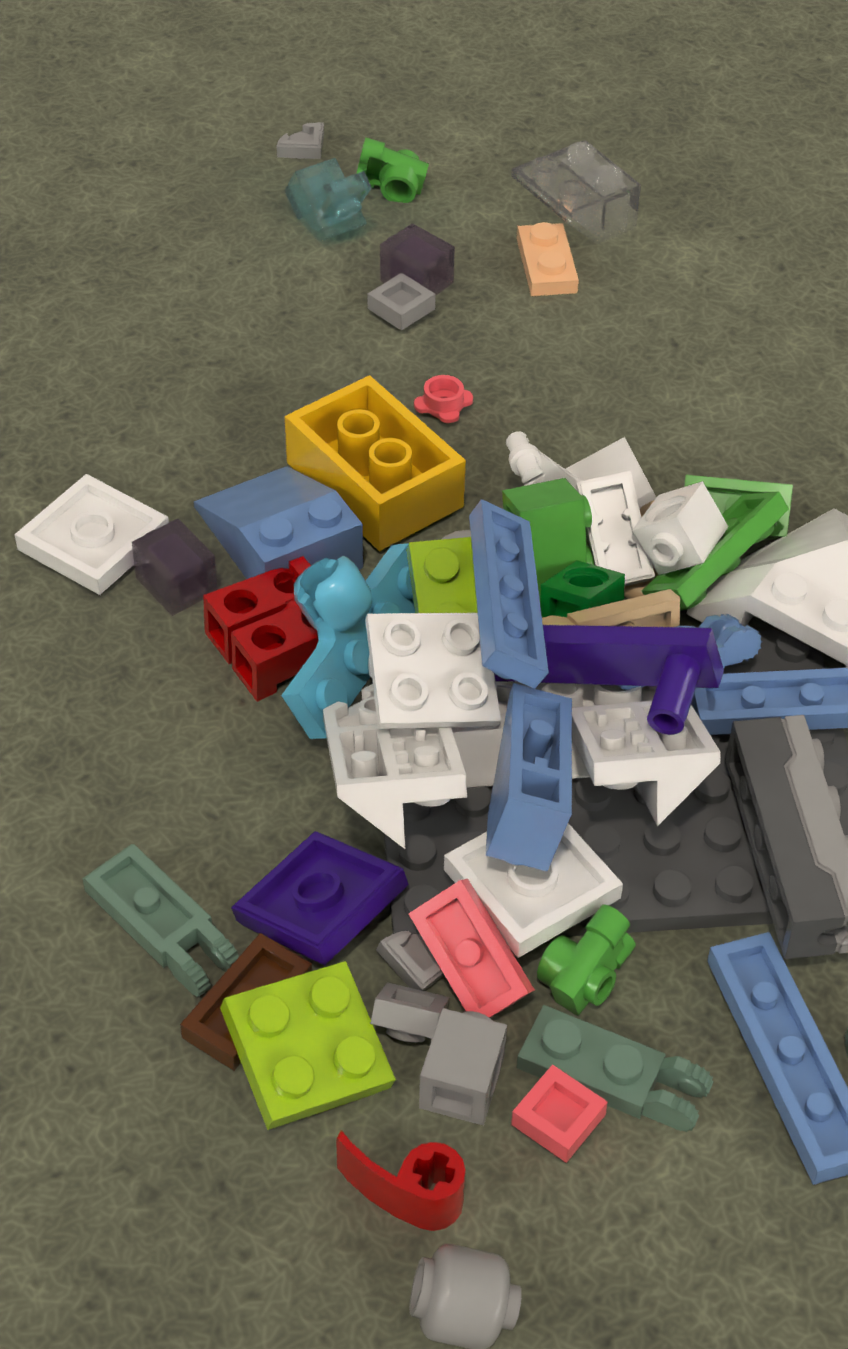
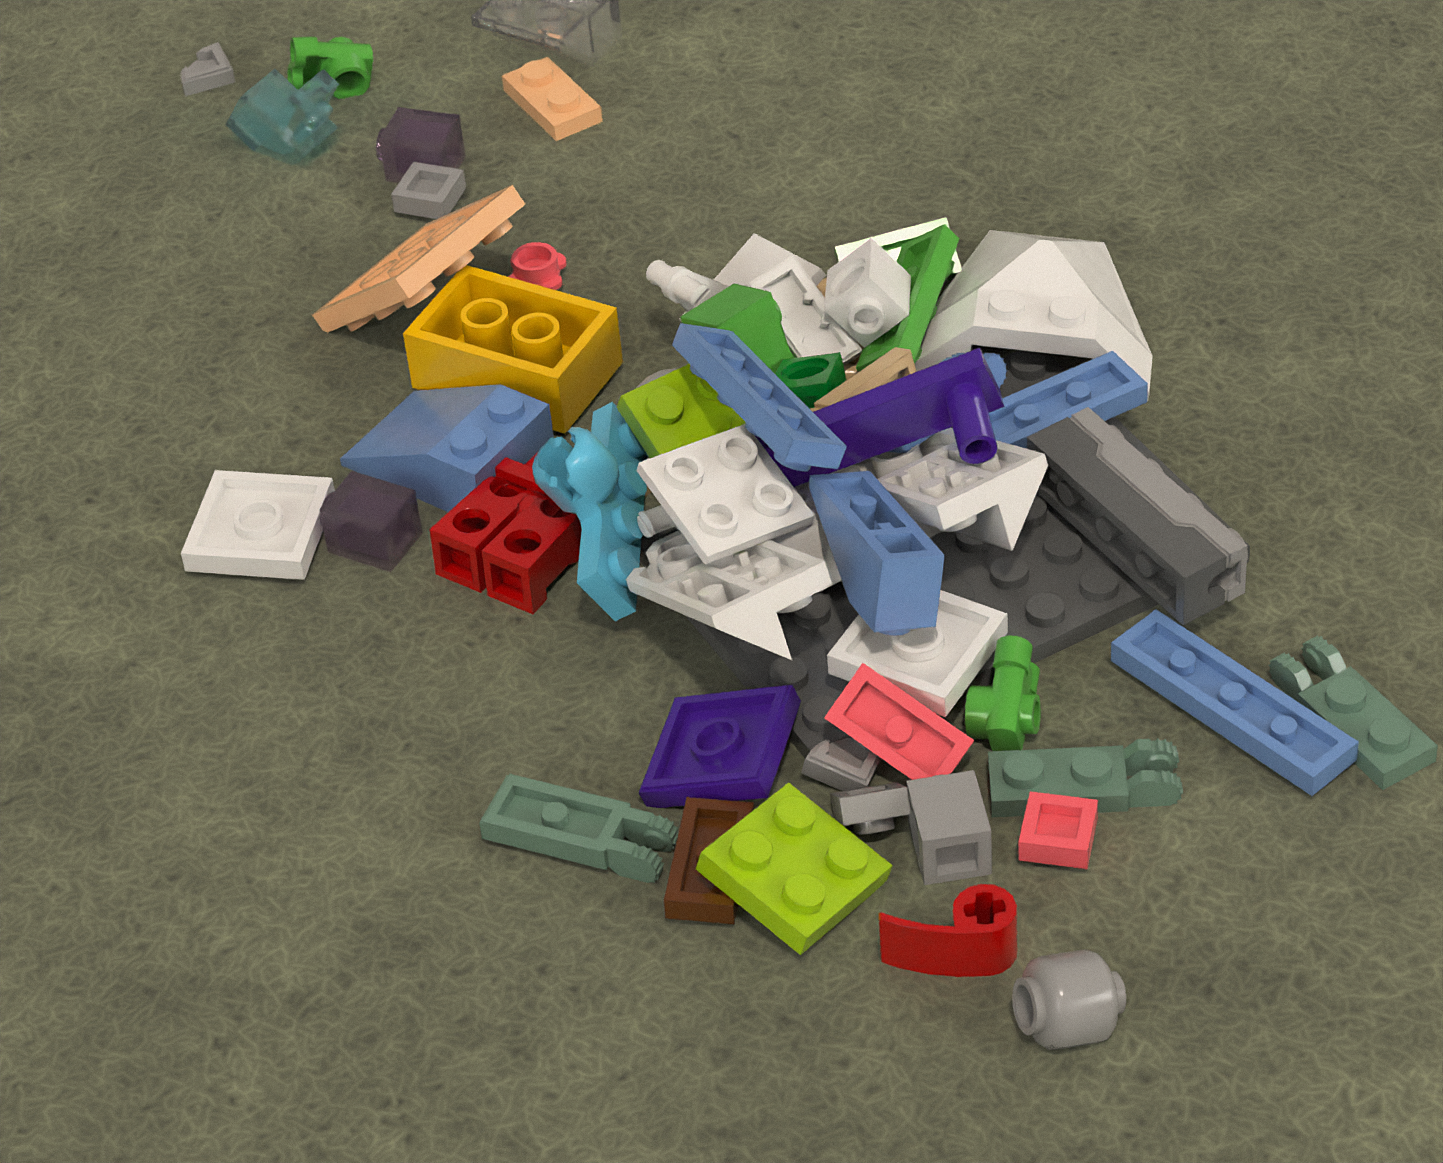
camera: 20 degrees left, 5 degrees down
(350, 359) = (408, 270): none -> light nougat plate

